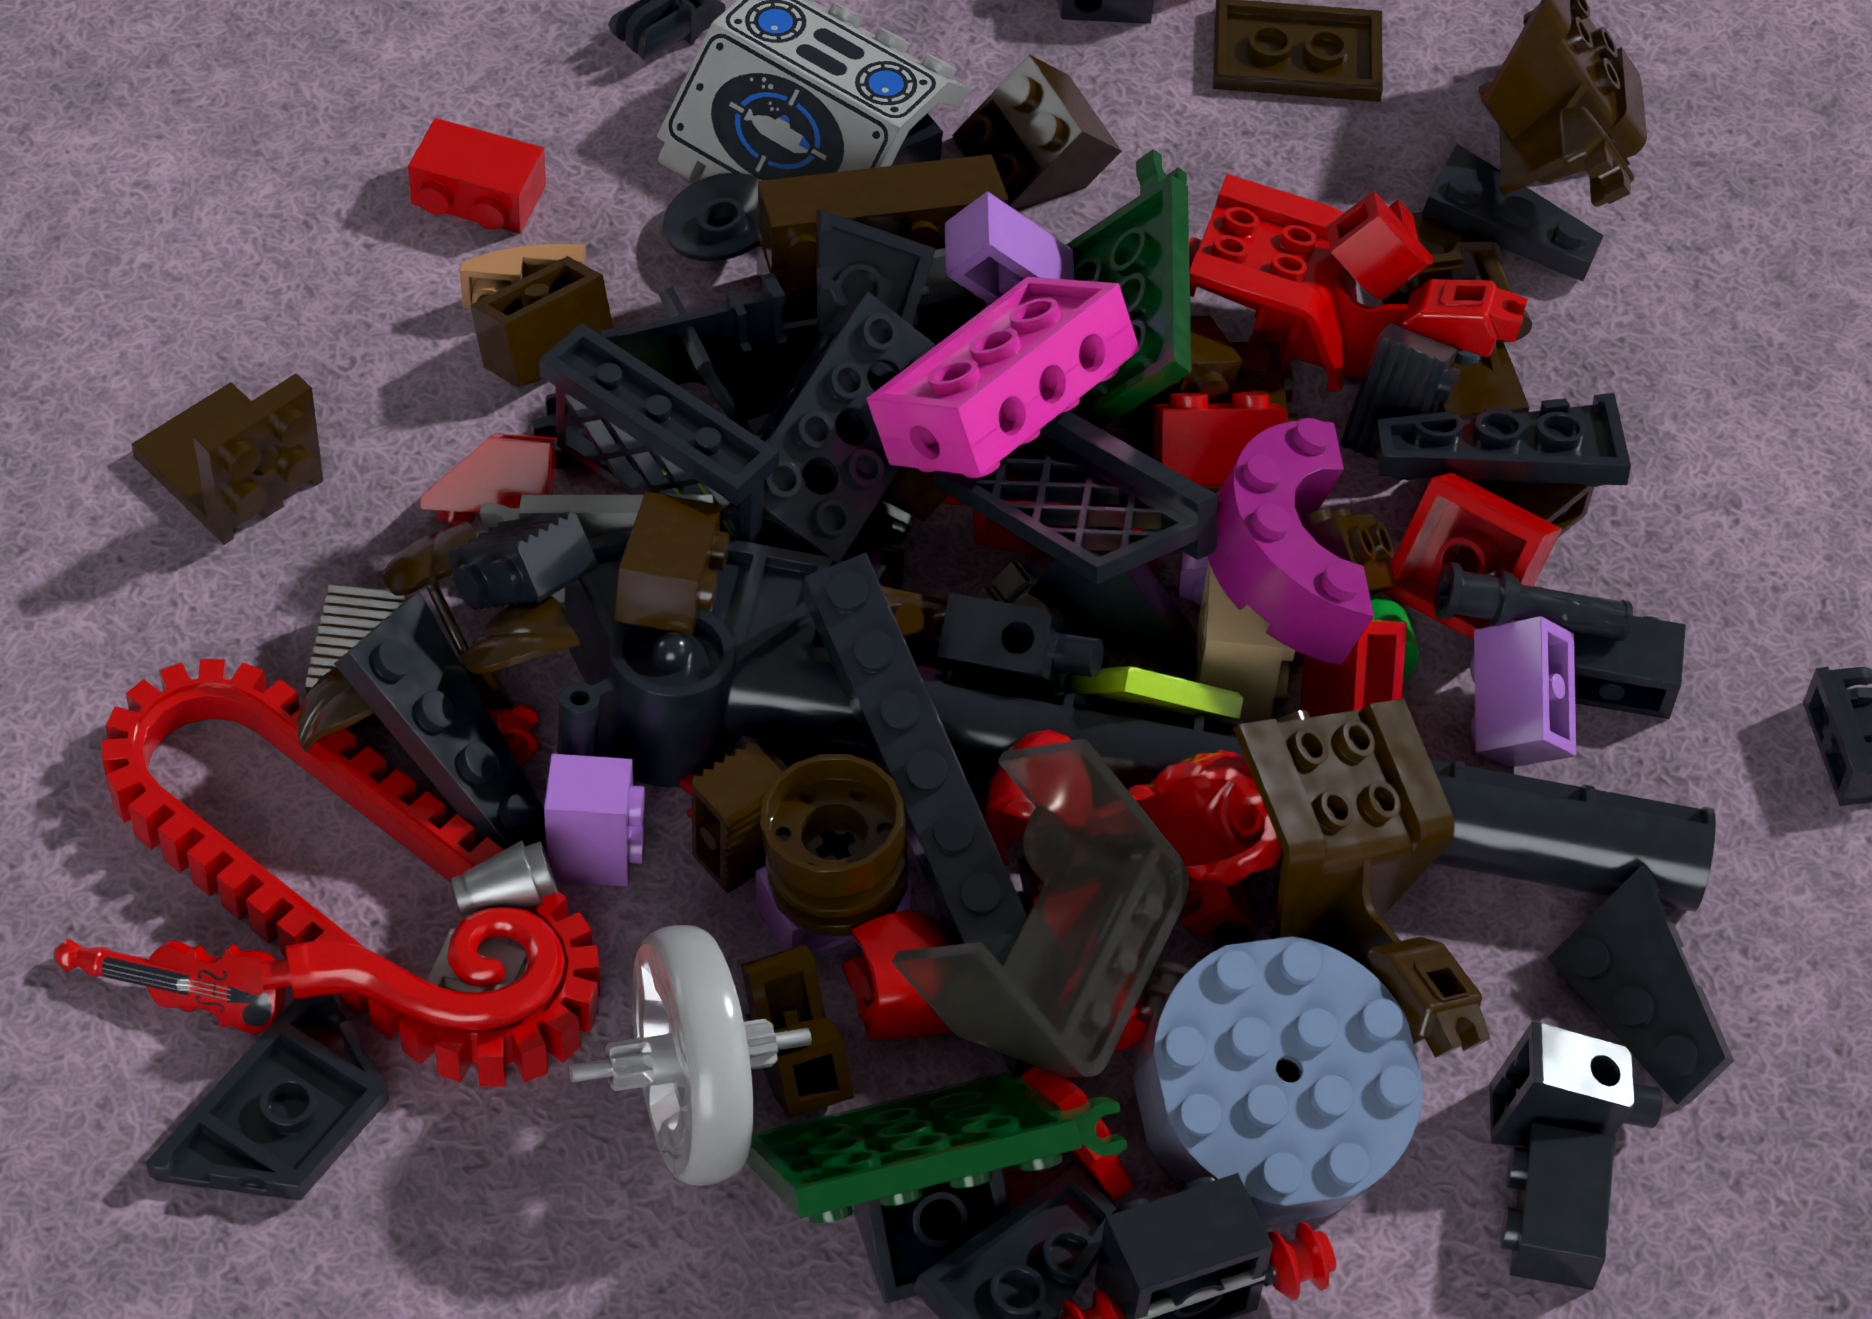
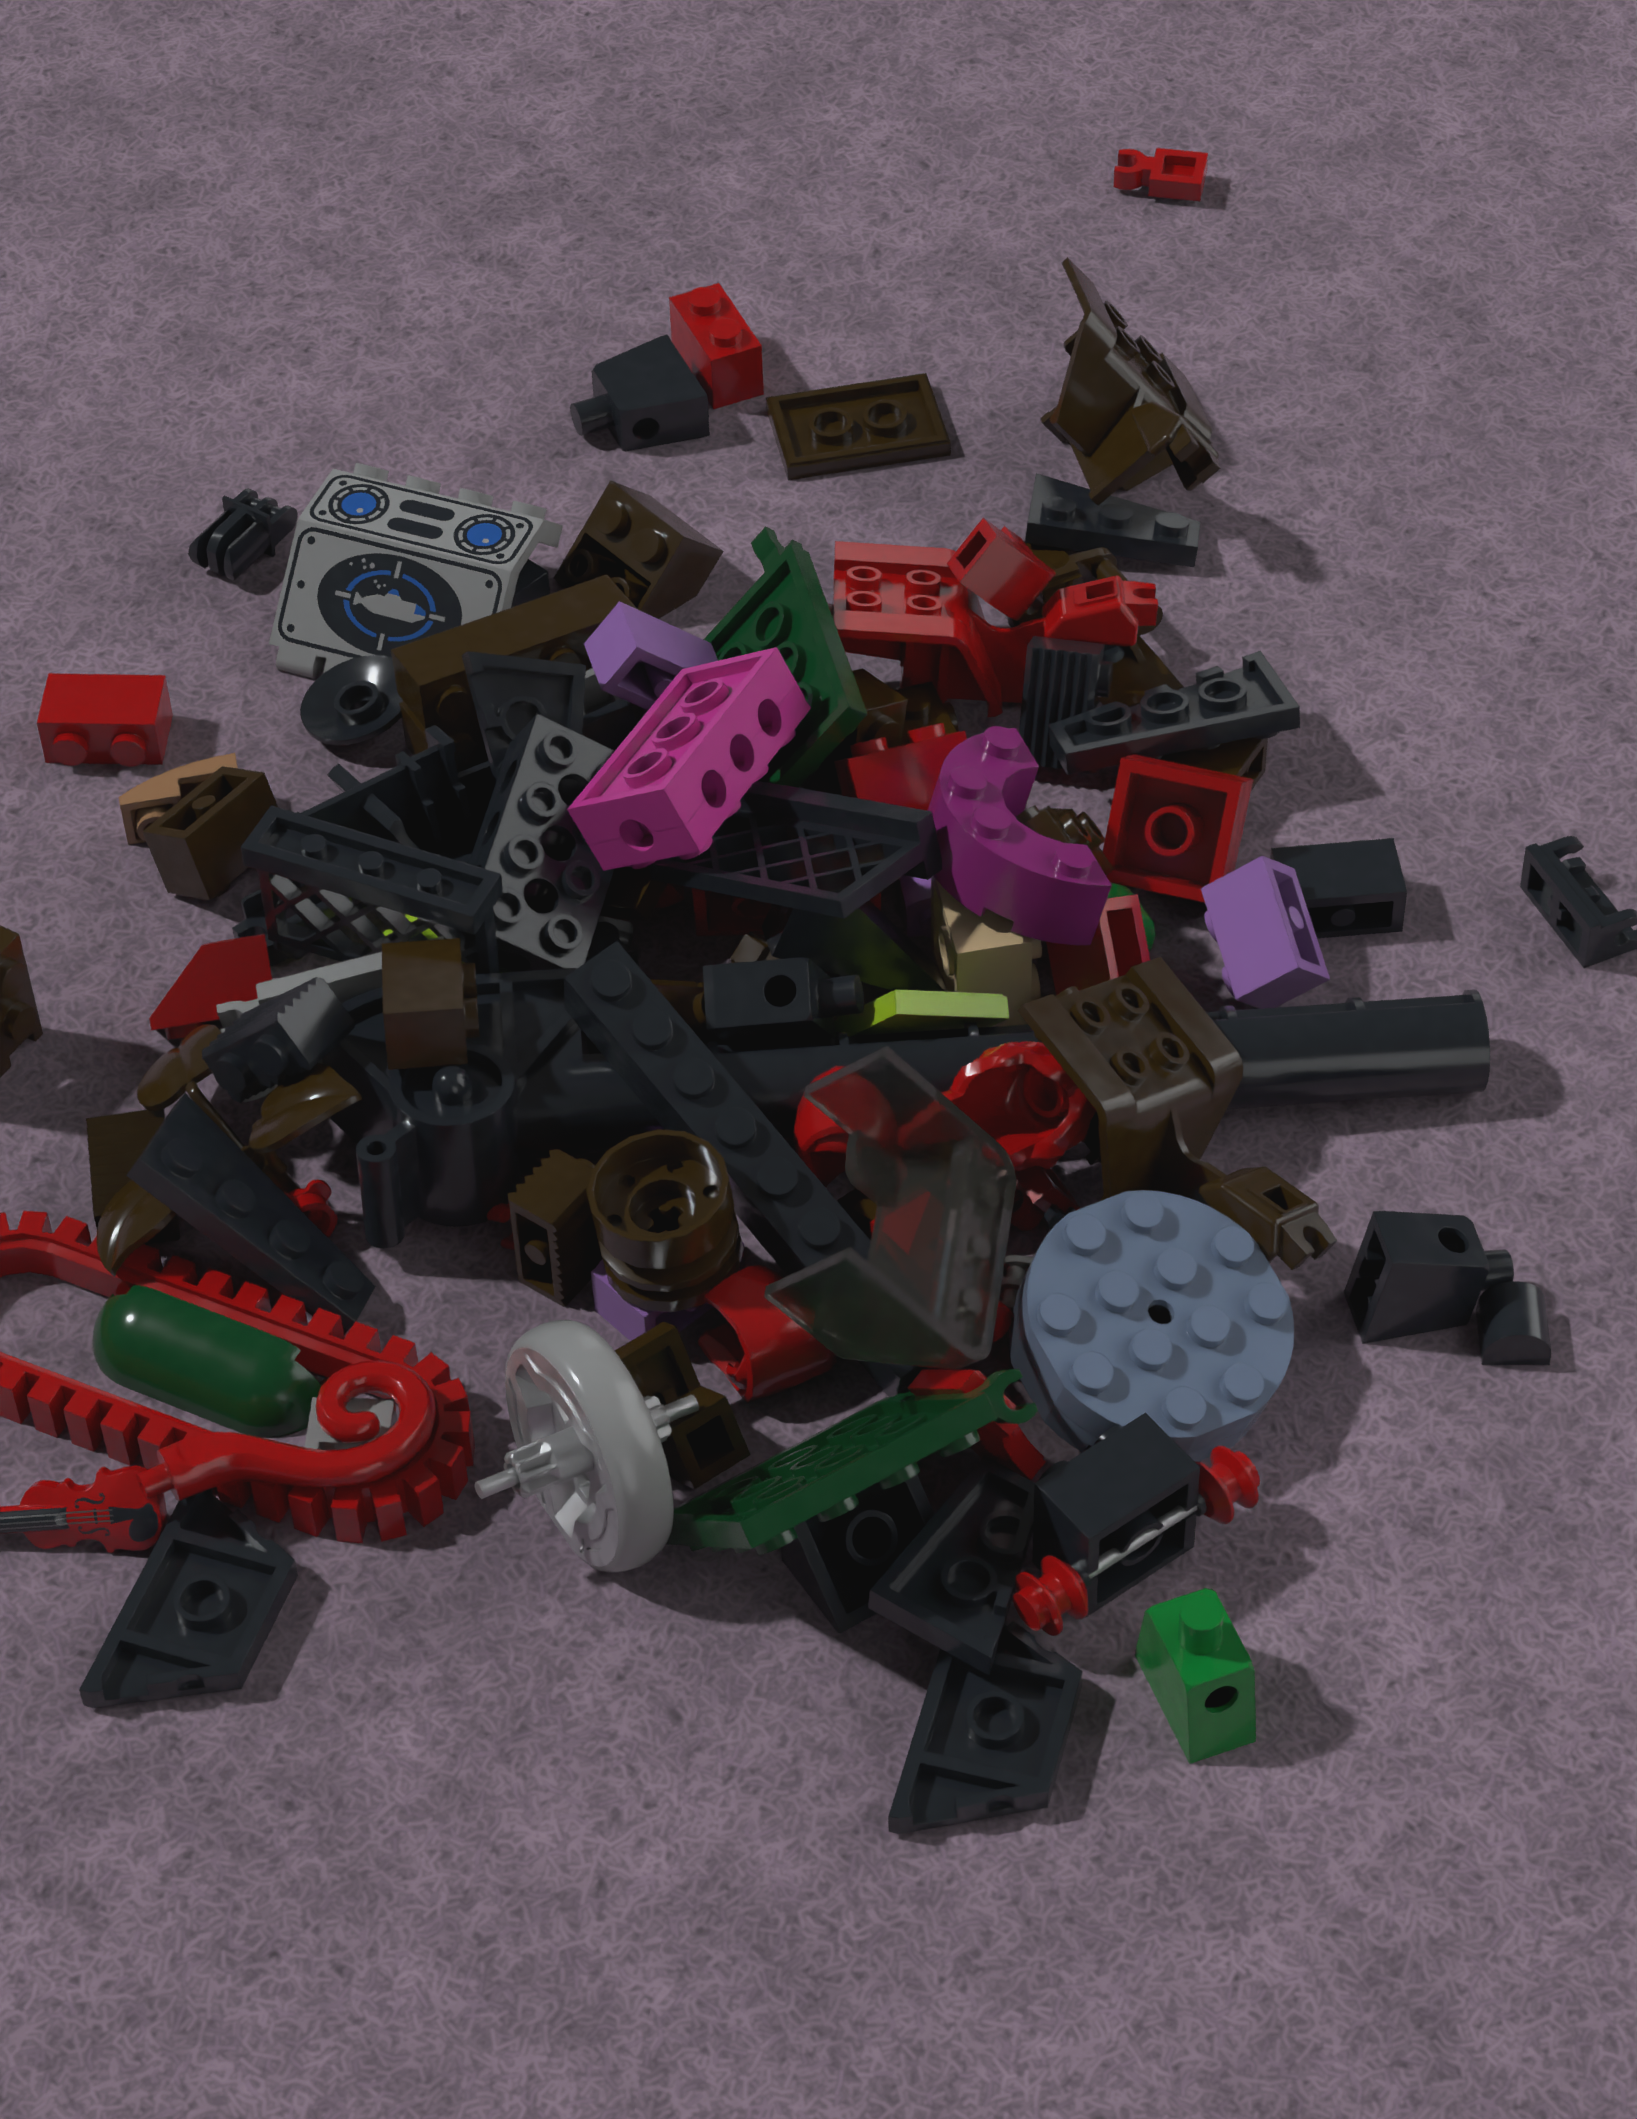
camera: 10 degrees left, 5 degrees down
(364, 861) = (203, 1363): none -> dark green brick
(509, 879) = (358, 1334): flat silver cone -> none
(593, 820) = (418, 1266): medium lavender brick -> none
(1504, 600) = (1222, 851): black pin -> none
(1561, 1206) = (1448, 1378): black brick -> none
(1640, 985) = (1459, 1165): black wing -> none
(1647, 1167) = (1513, 1325): none -> black brick

